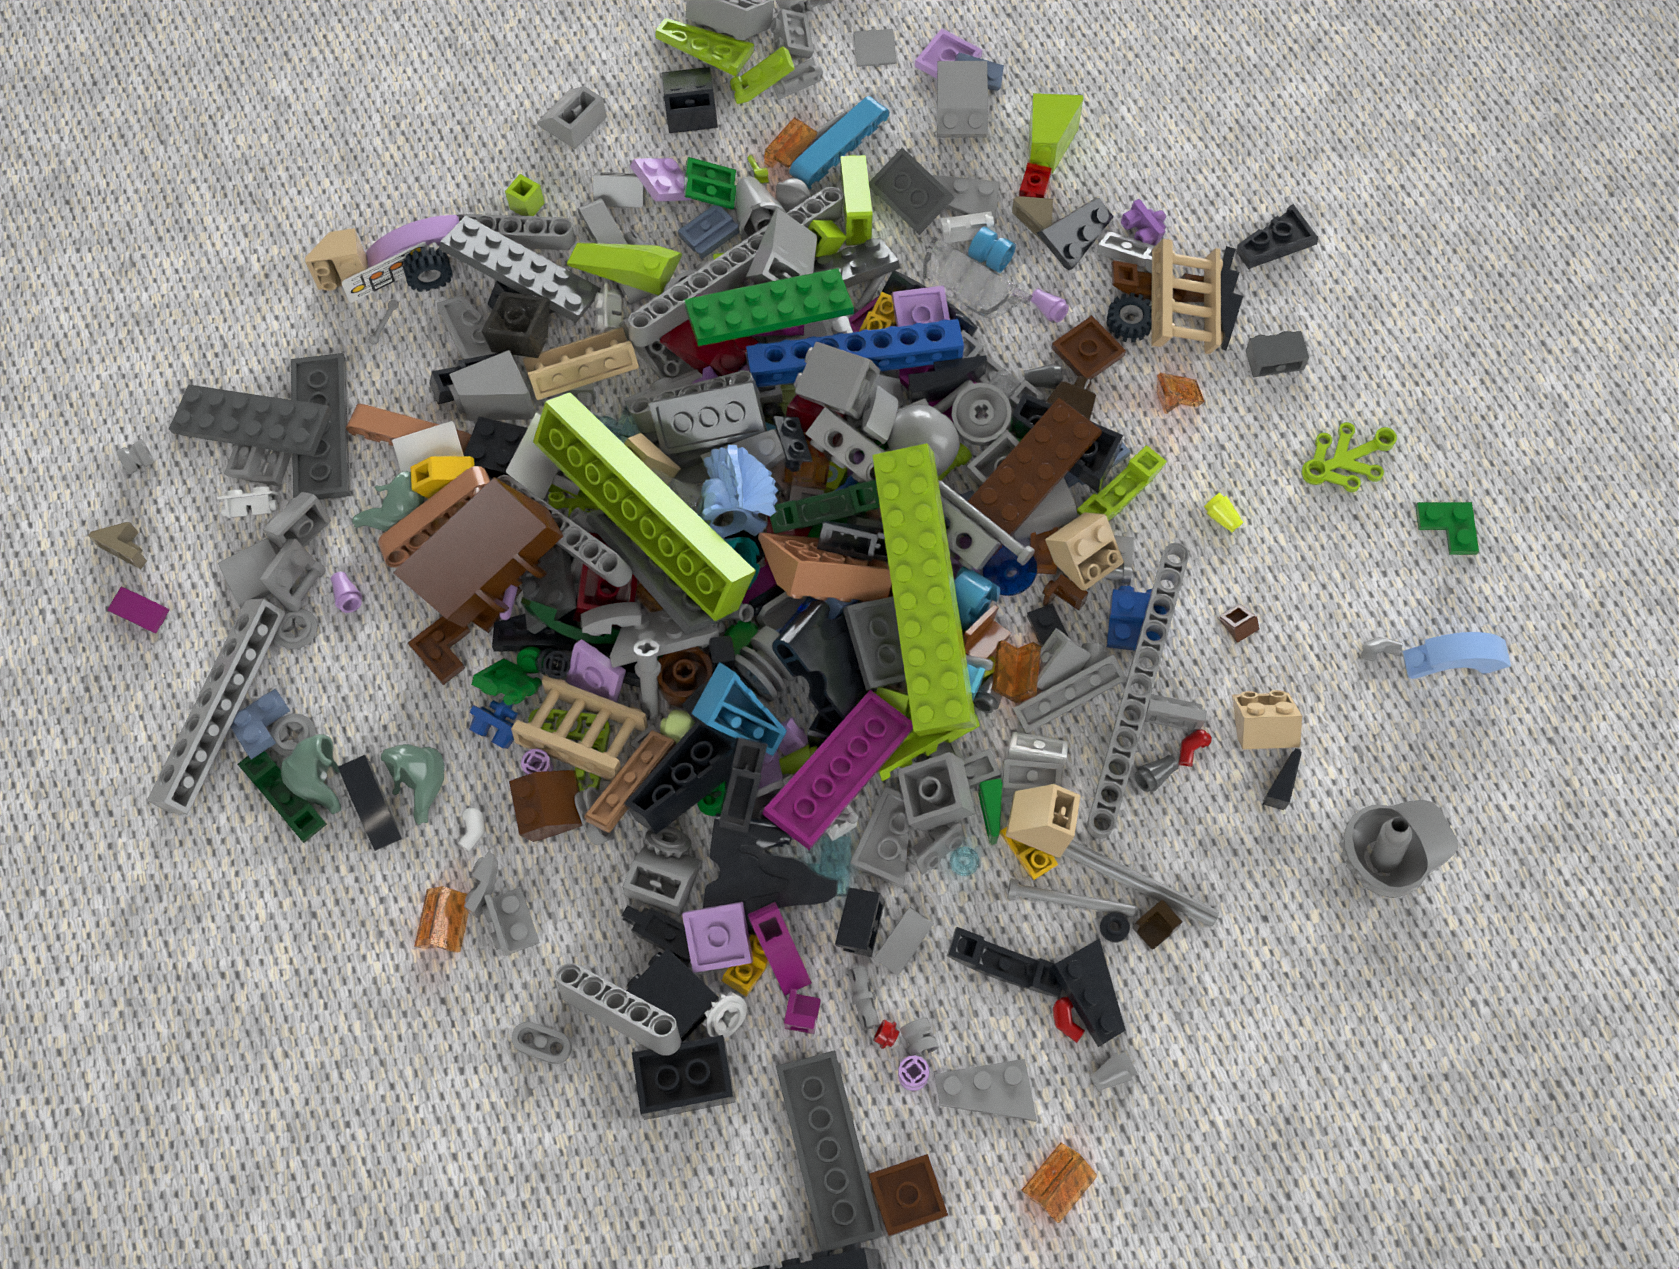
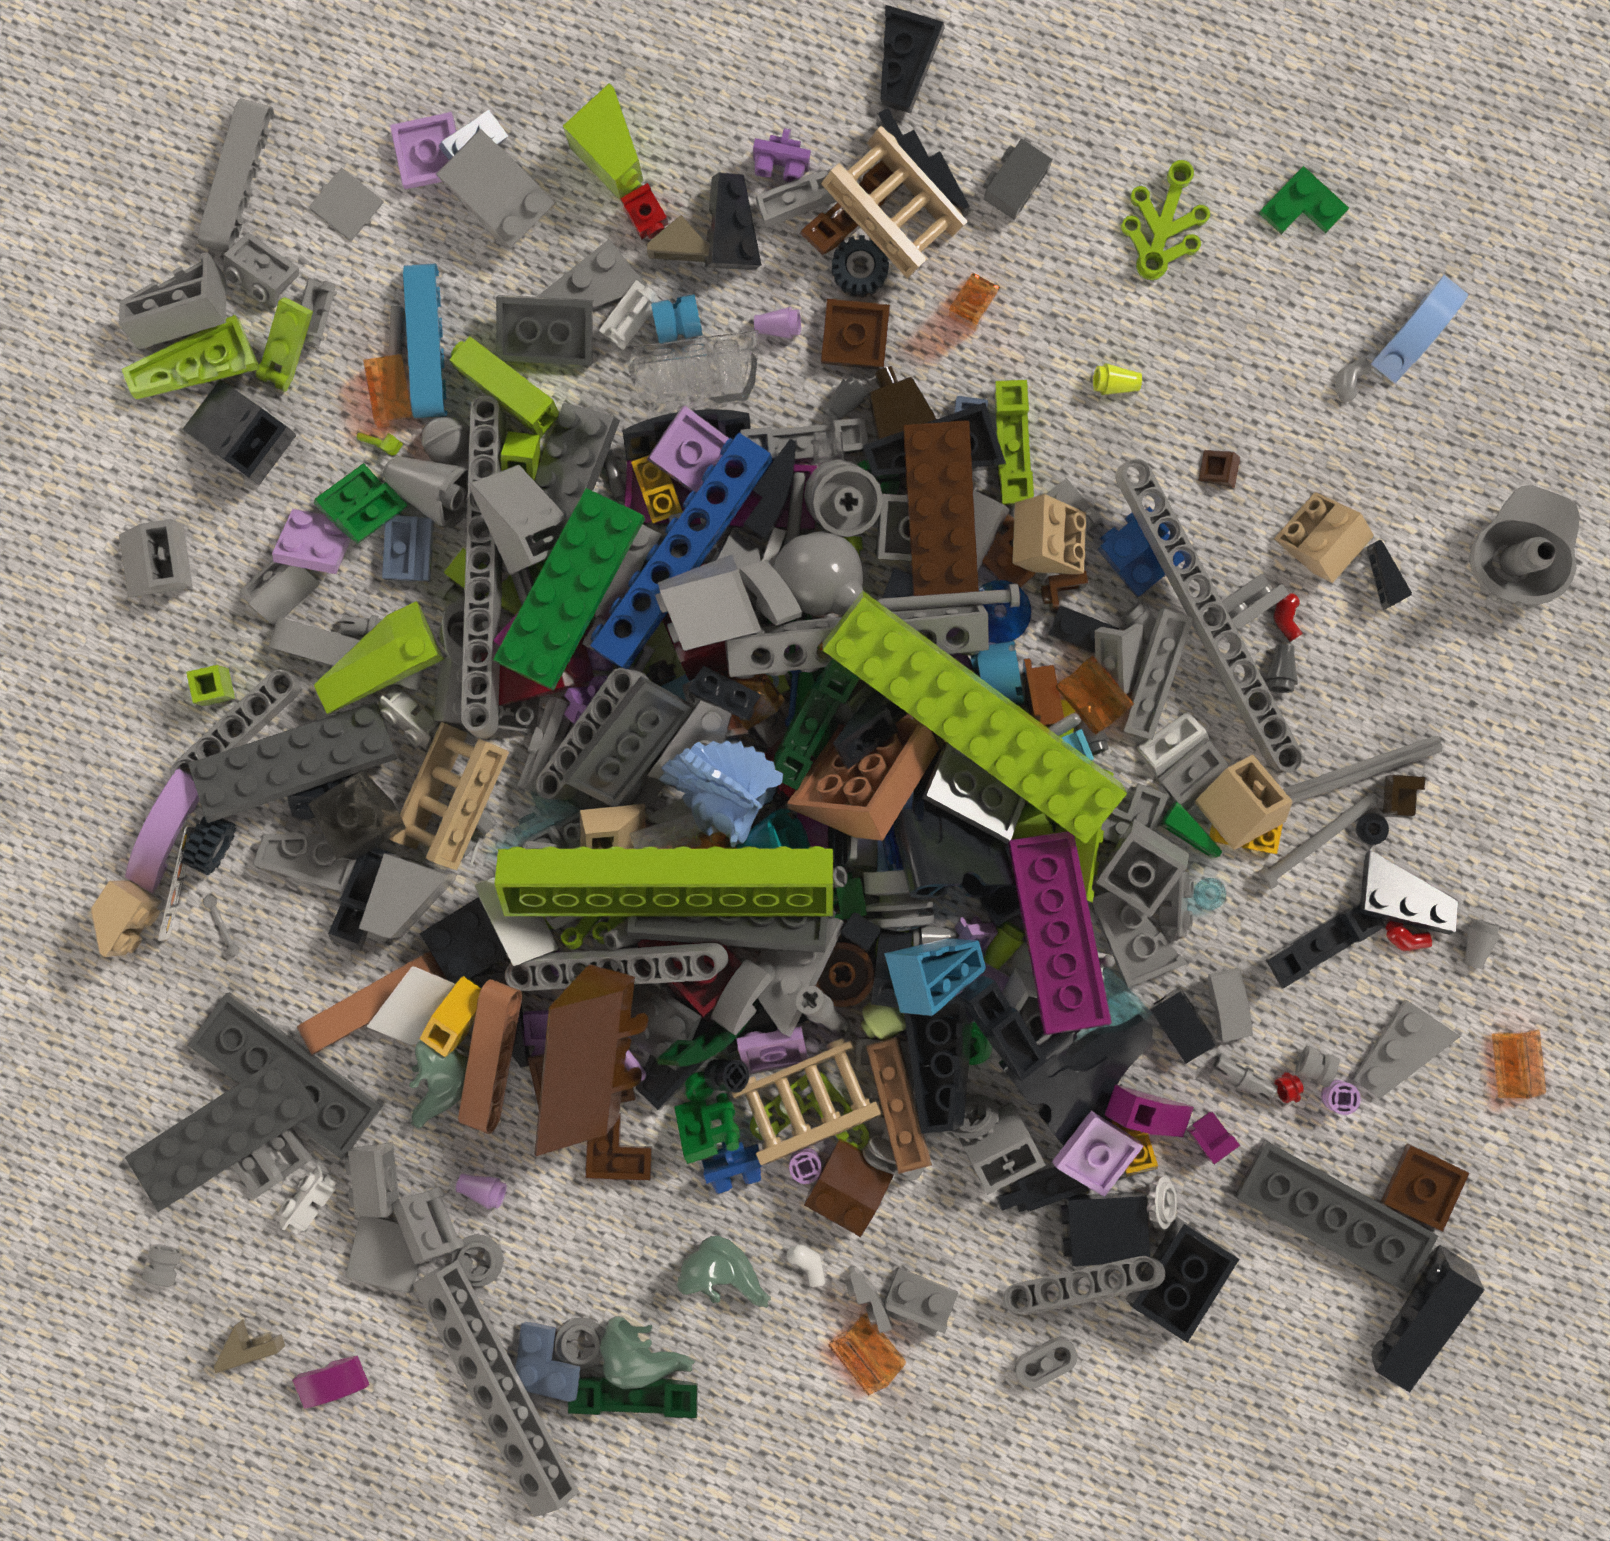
camera: 45 degrees left, 20 degrees up
(370, 802) = (708, 1330): black slope -> none

